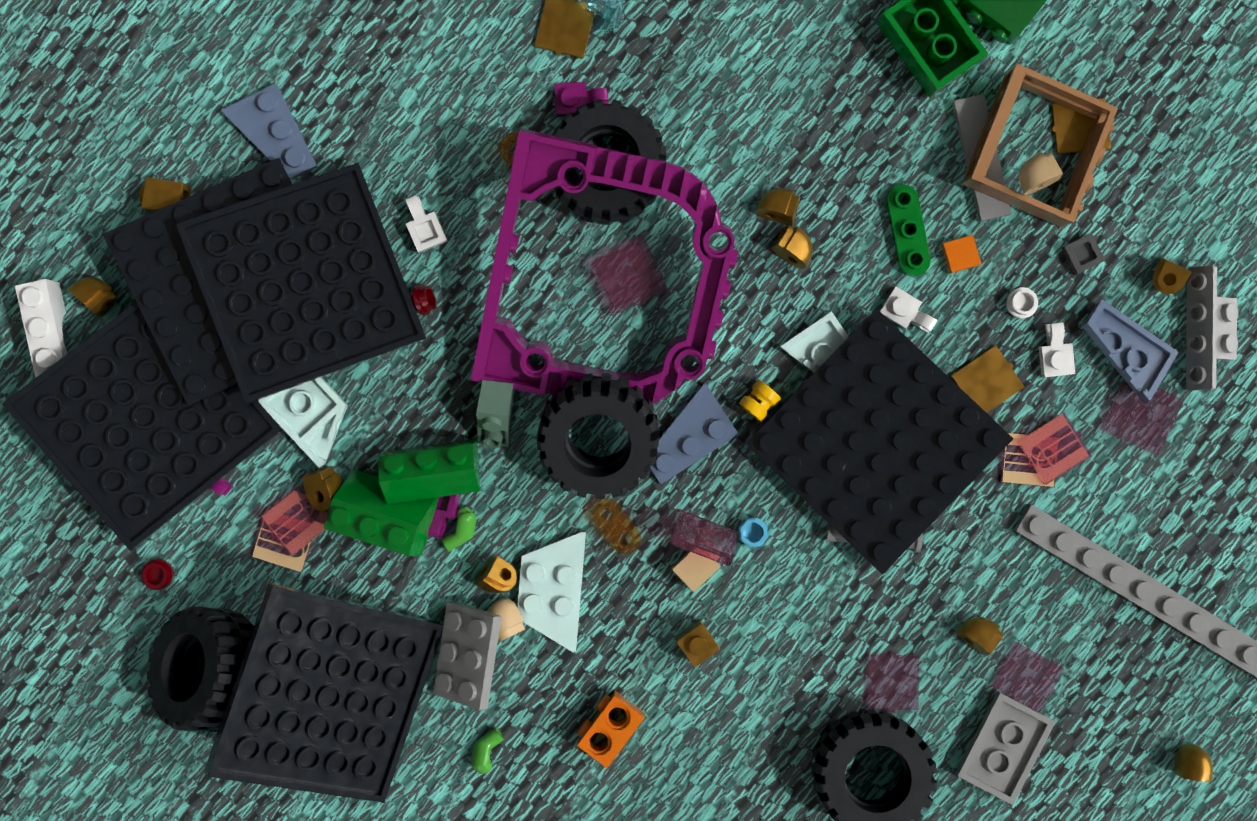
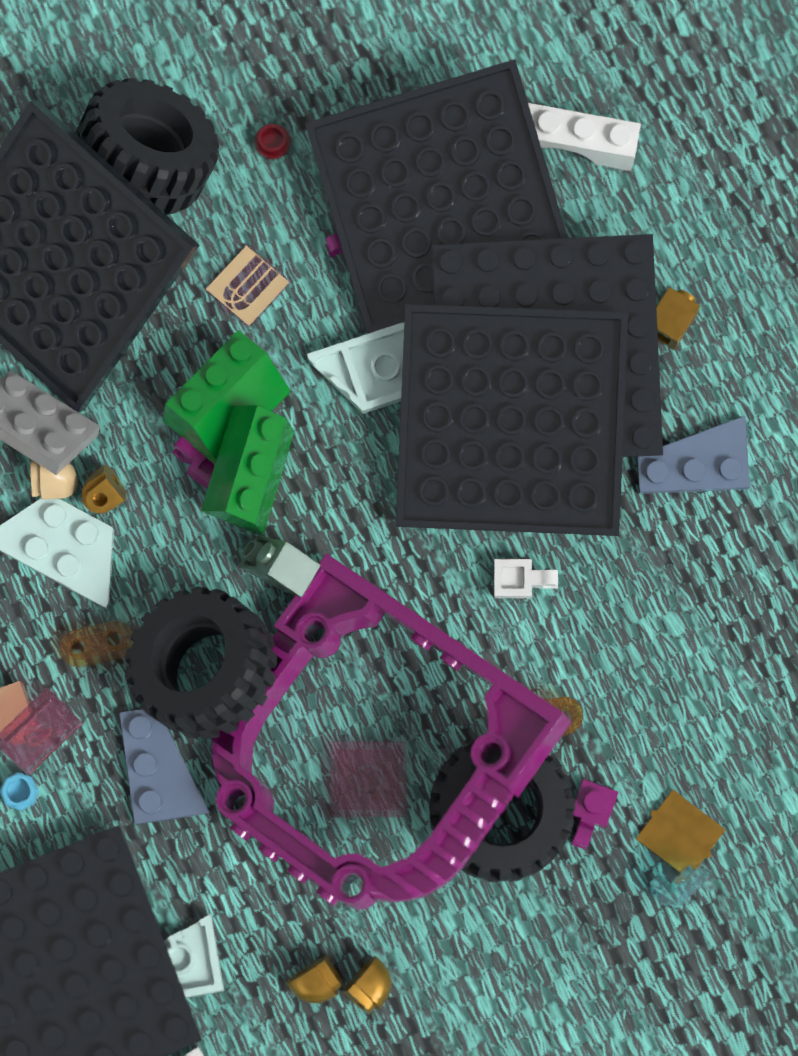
camera: 115 degrees right, 10 degrees down
(94, 294) = (600, 199): pearl gold piece -> none
(294, 520) = (264, 307): clear pink piece -> none
(321, 487) = (285, 348): pearl gold piece -> none
(423, 299) = (440, 543): dark red plate -> none
(464, 529) = (170, 479): bright green arm -> none
(763, 394) = (162, 872): yellow wheel -> none

